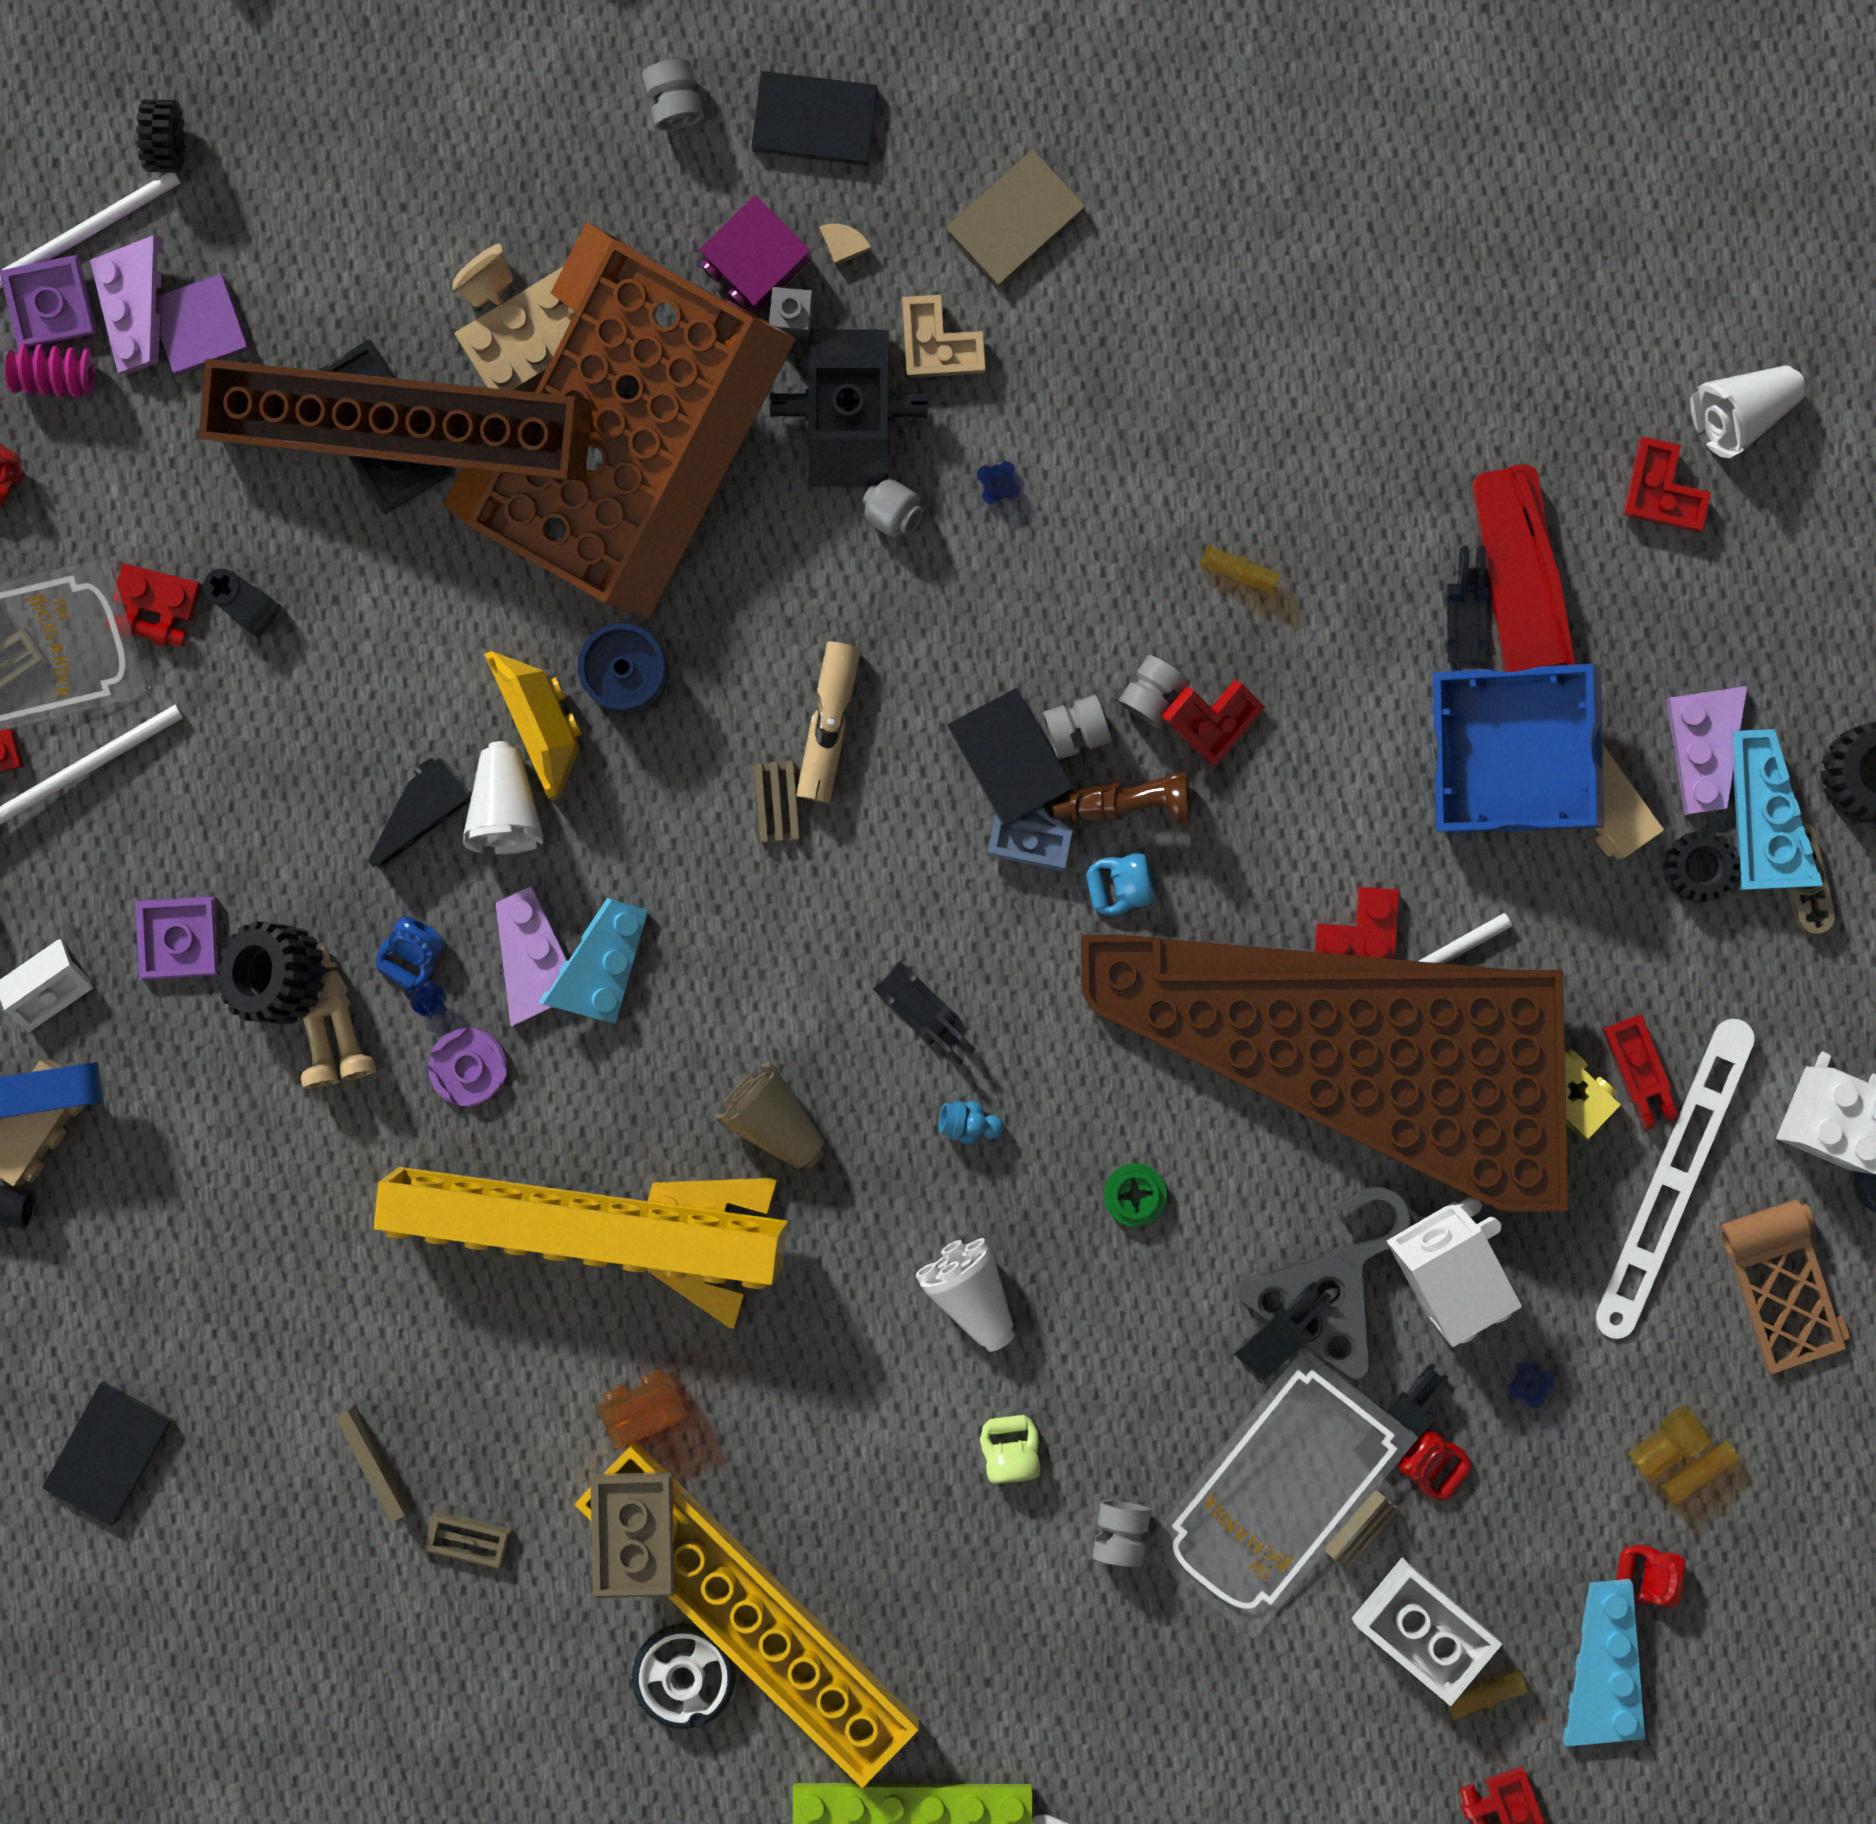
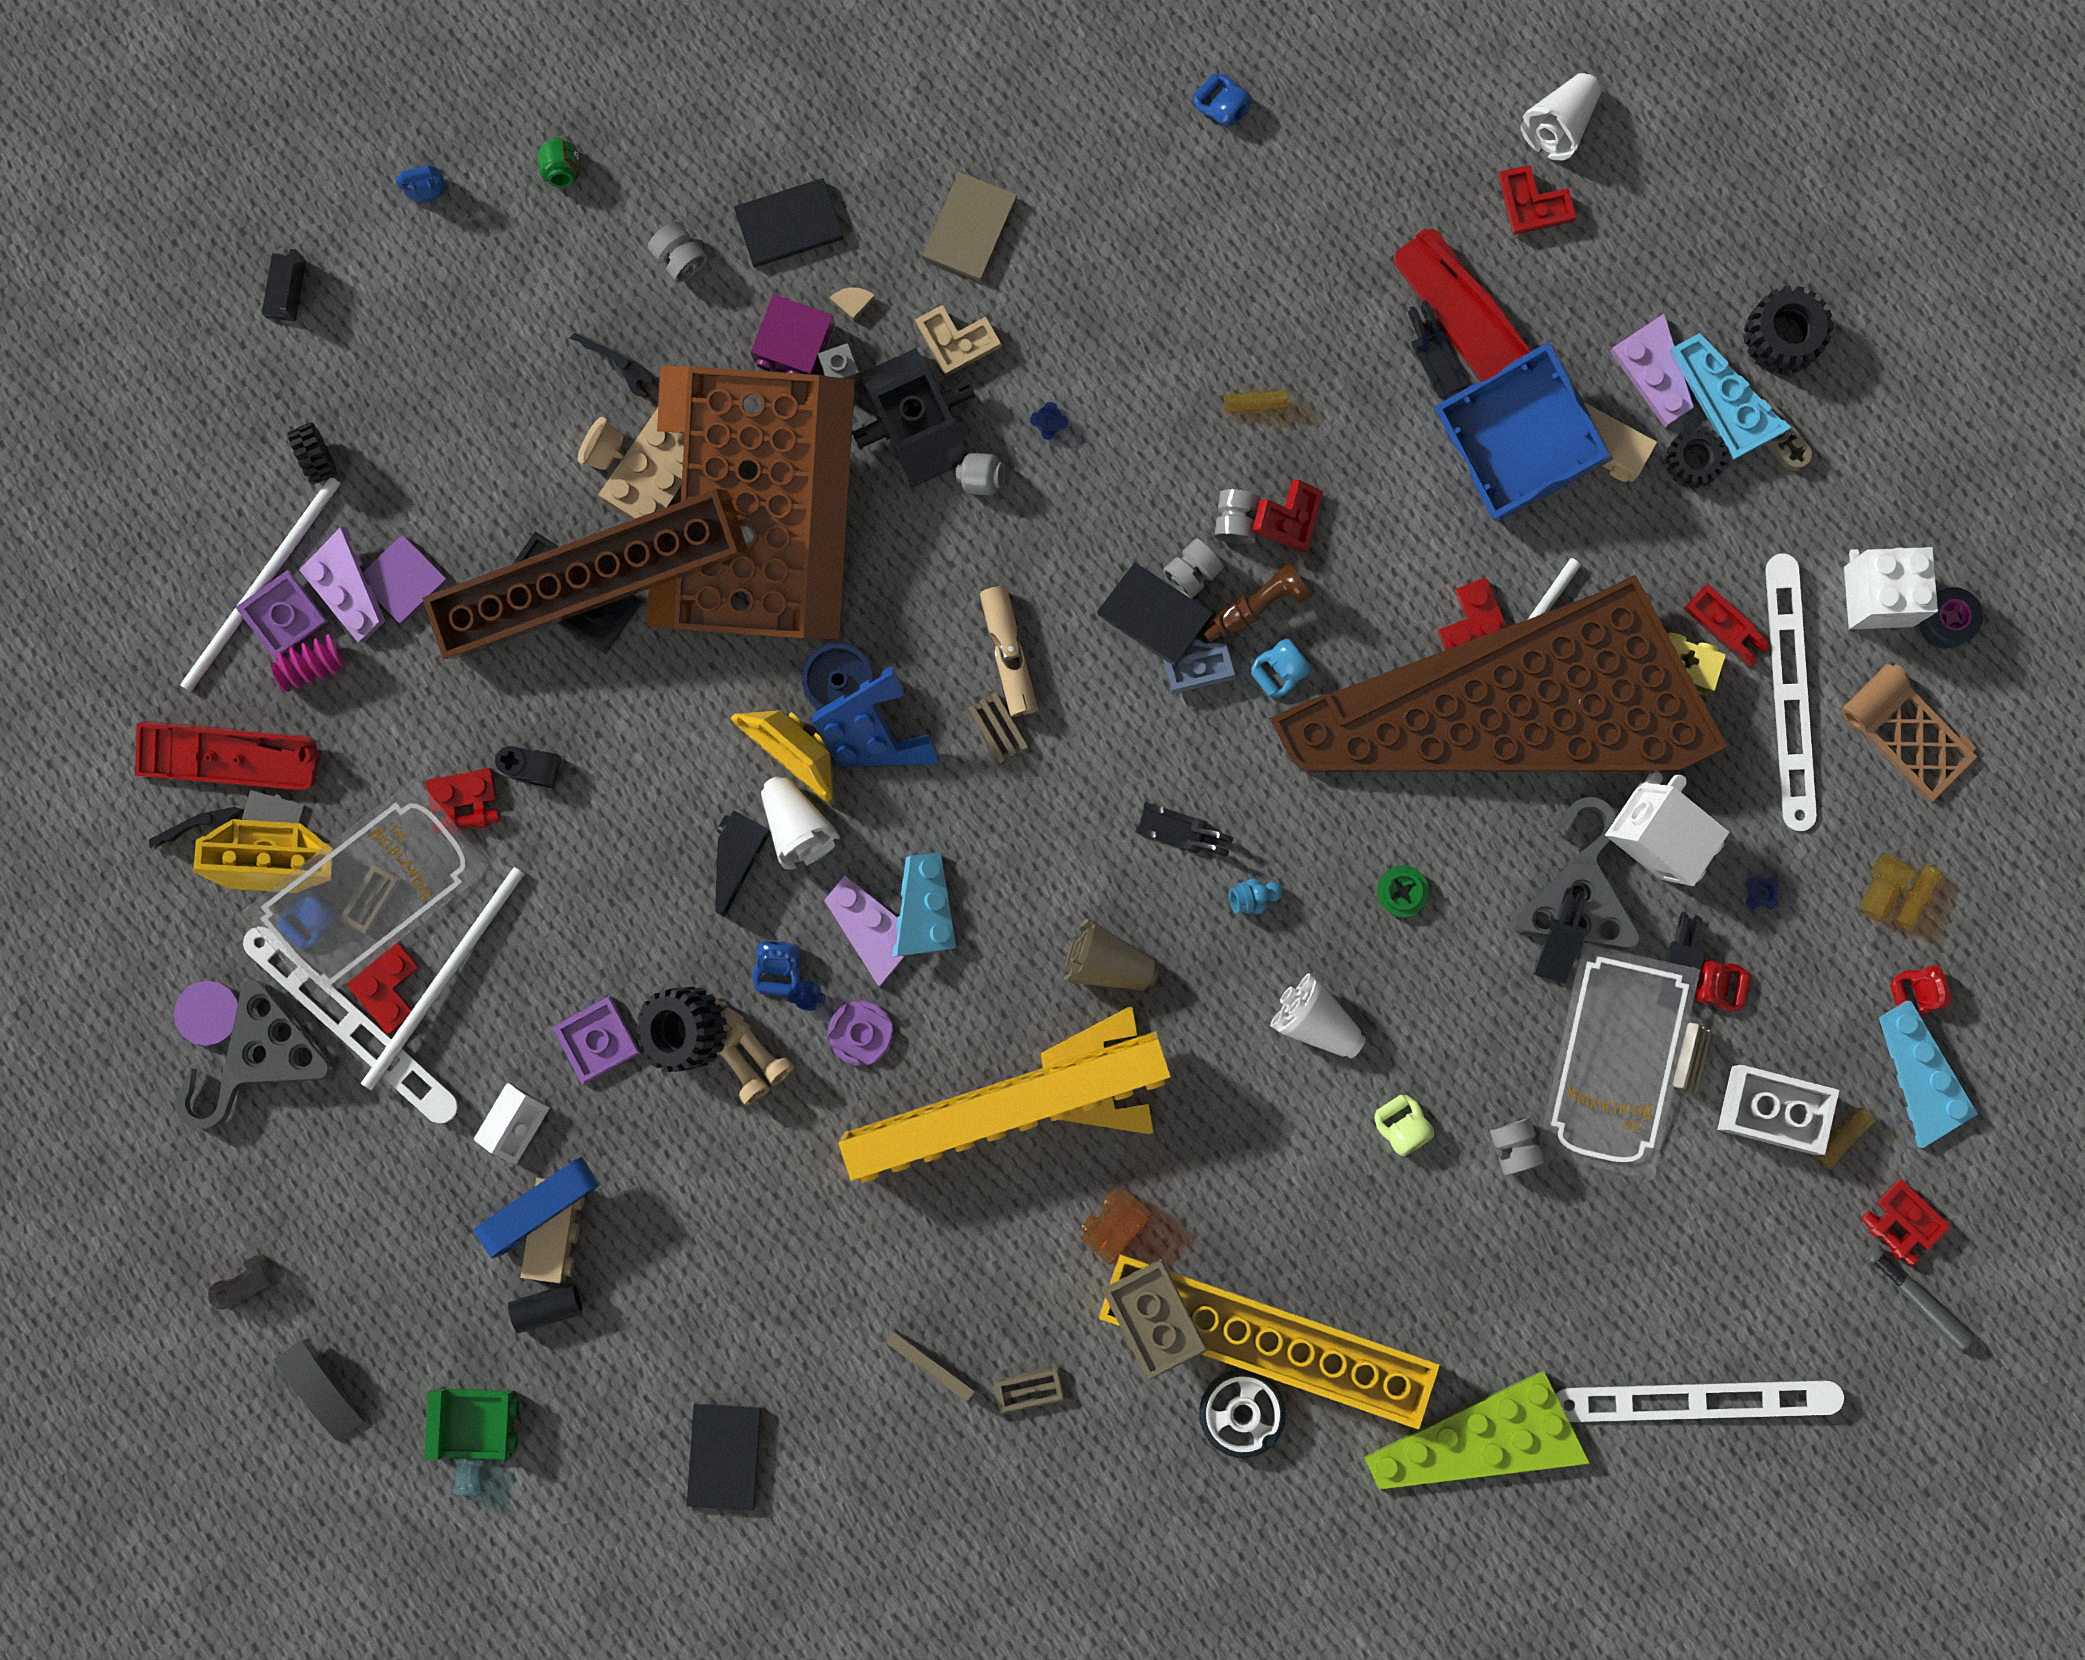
camera: 30 degrees left, 5 degrees down
(559, 204) = (631, 370): none -> black arm
(617, 739) = (858, 733): none -> blue wing
(1375, 214) = (1229, 104): none -> blue piece

